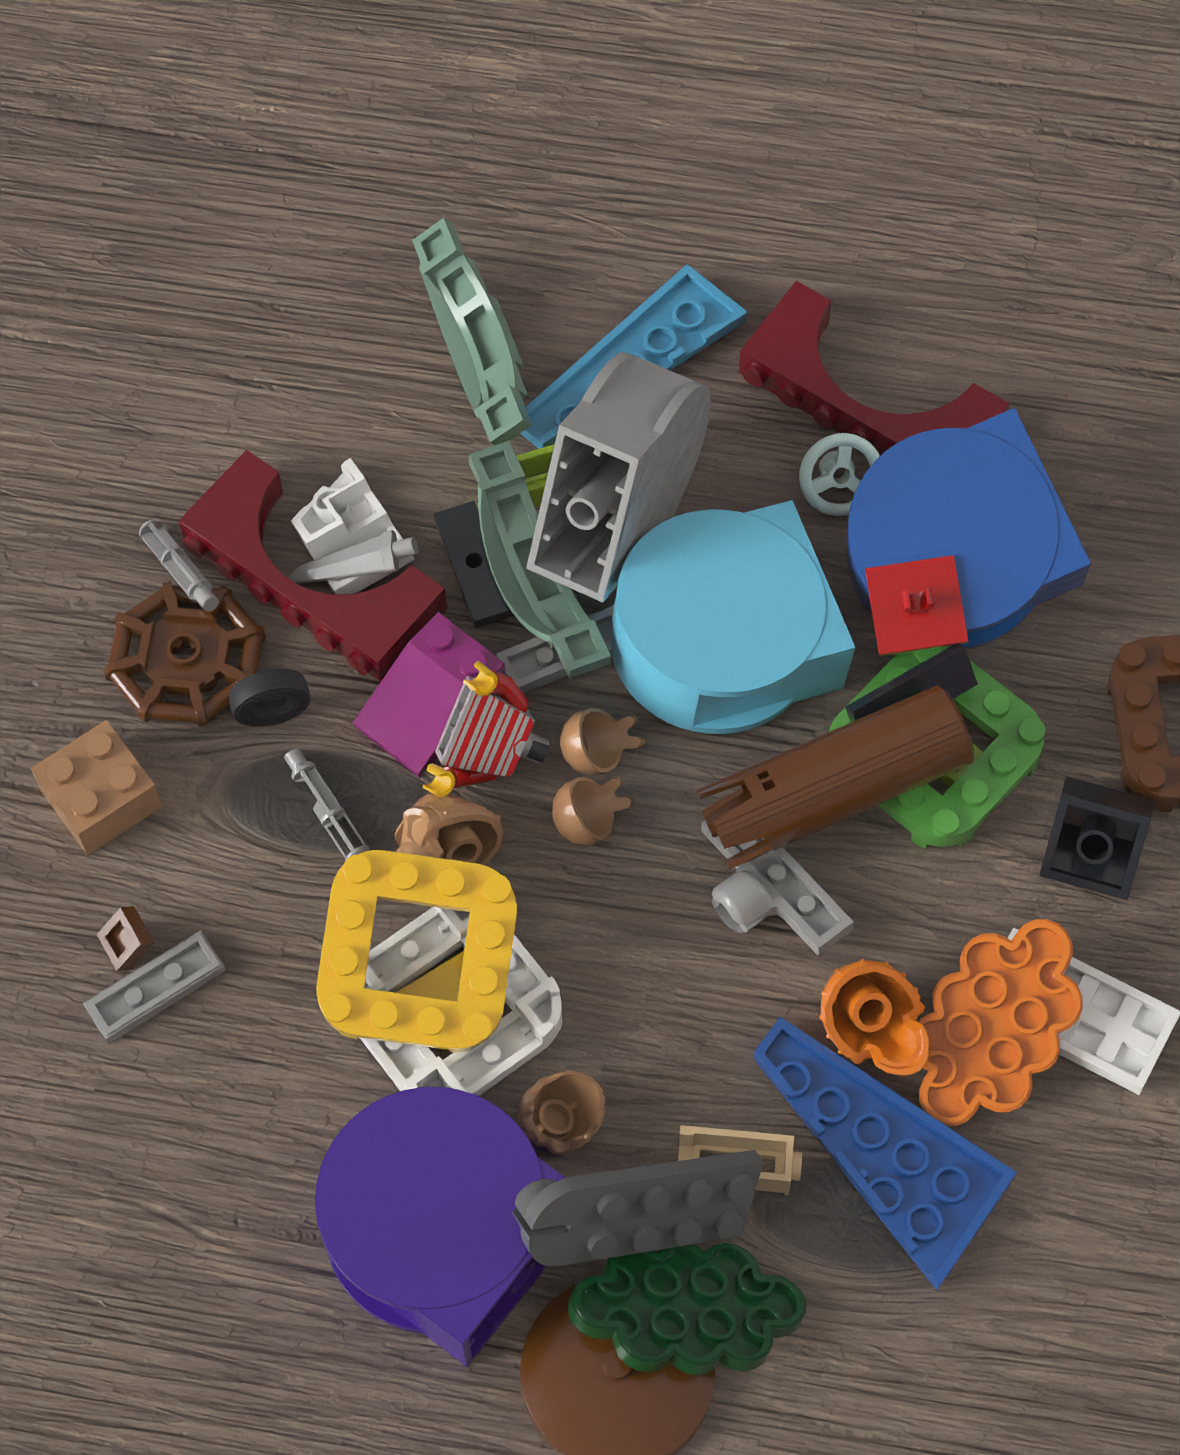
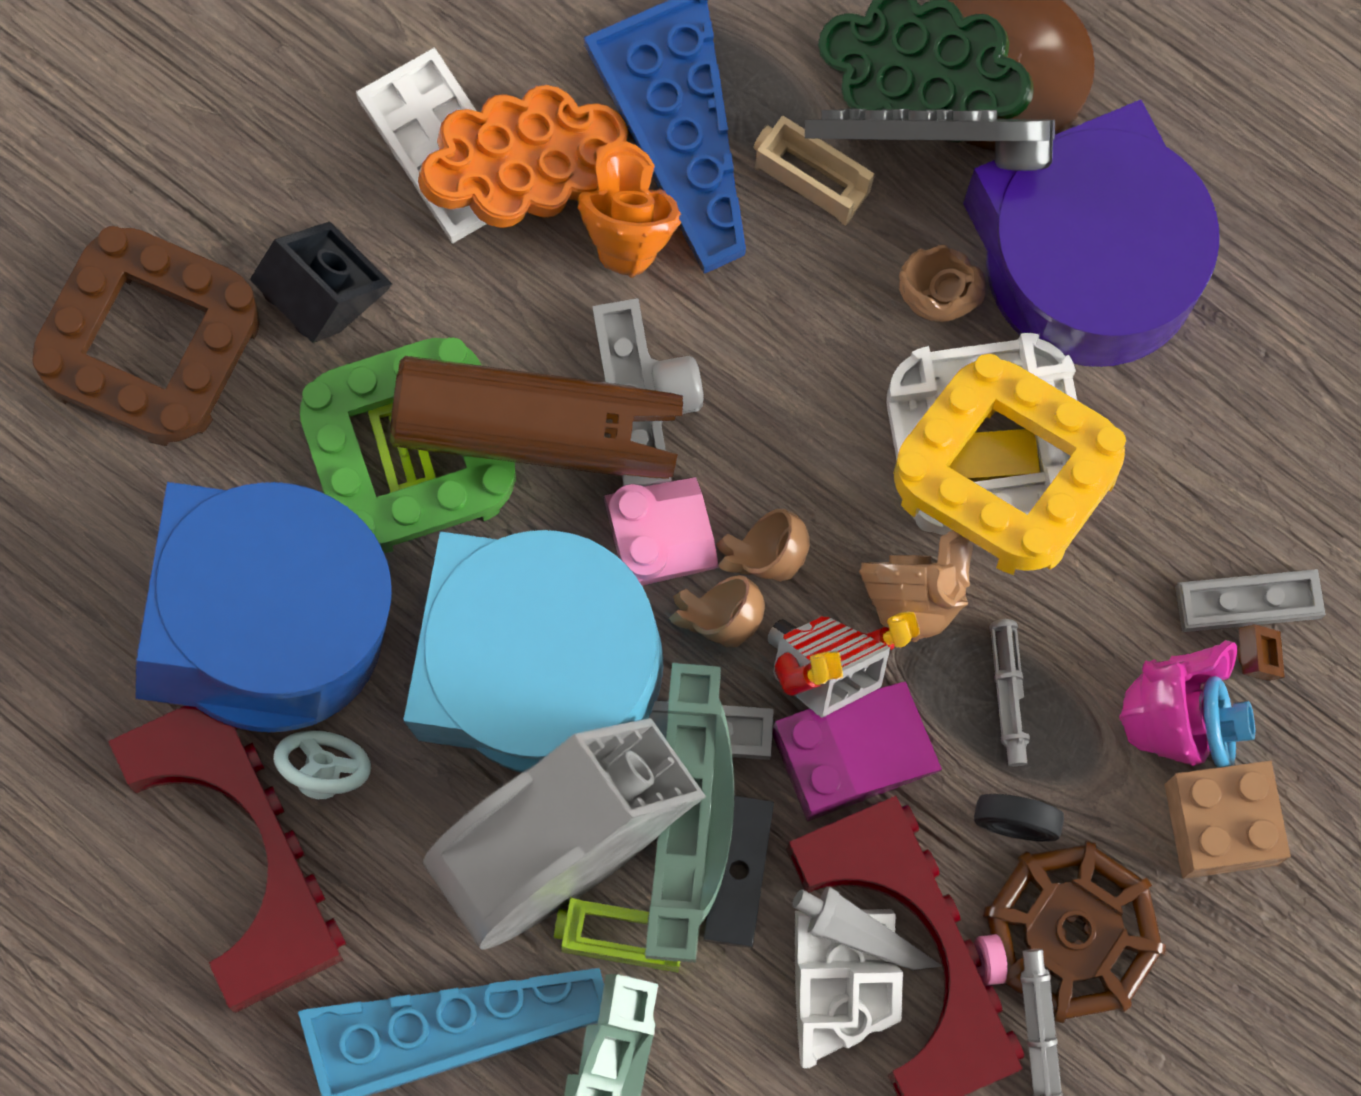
camera: 160 degrees left, 10 degrees up
(126, 855) = (1225, 723): none -> dark azure piece
(178, 846) = (1167, 706): none -> dark pink head
(242, 594) = (992, 958): none -> bright pink tile
(670, 783) = (662, 530): none -> bright pink slope
(916, 605) = (356, 538): red piece -> none
(948, 669) = (409, 473): black tile -> none

